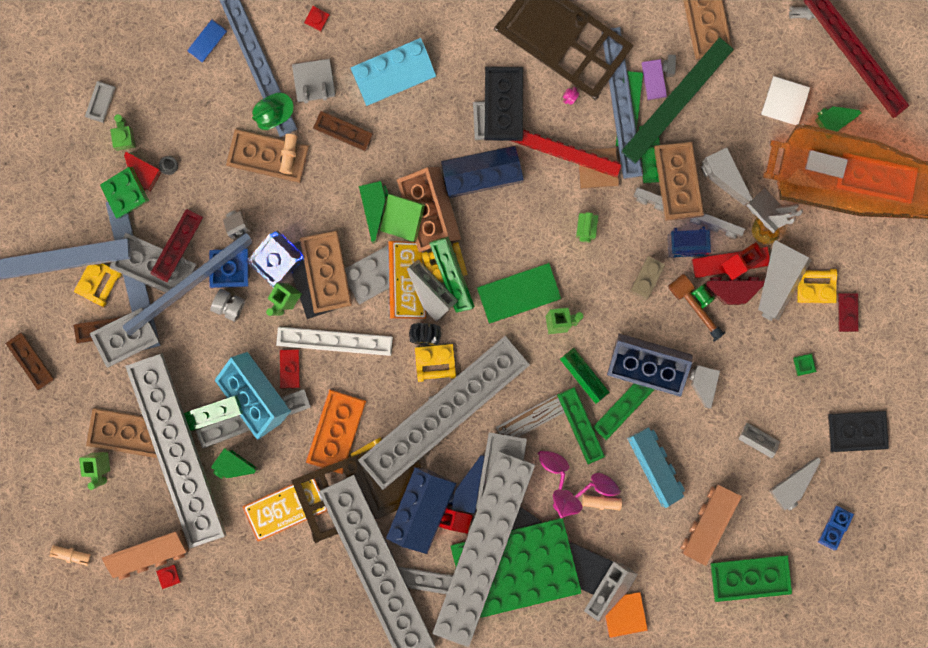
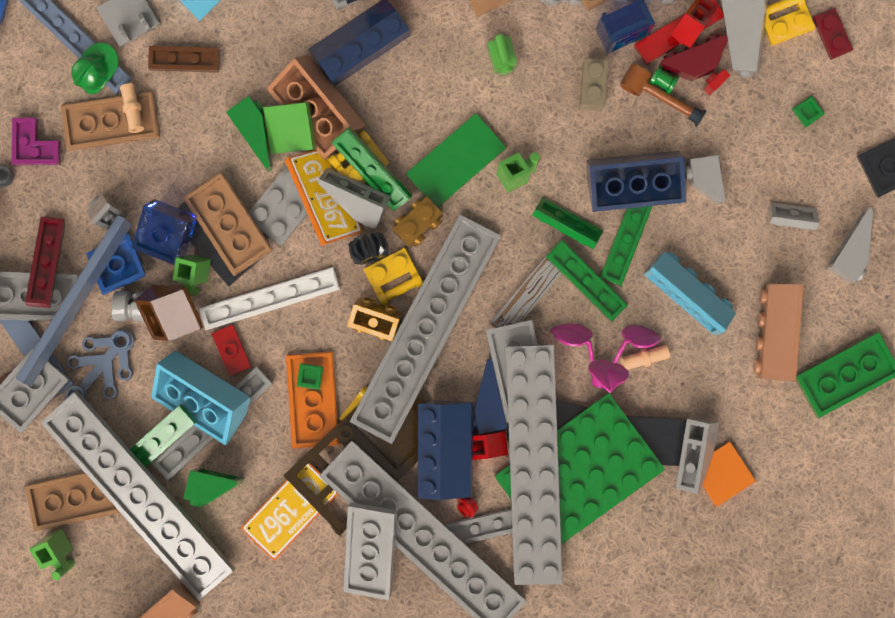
camera: 20 degrees left, 0 degrees up
(189, 339) = (104, 362): none -> sand blue plant
(196, 153) = (27, 148): none -> magenta plate
(254, 321) = (168, 312): none -> slope
(333, 563) = (369, 550): none -> light grey plate
(341, 413) = (310, 376): none -> green tile
(408, 389) = (375, 319): none -> pearl gold brick
(420, 560) = (467, 506): none -> red plate
(475, 327) = (418, 222): none -> pearl gold brick
(742, 312) = (715, 81): none -> red plate

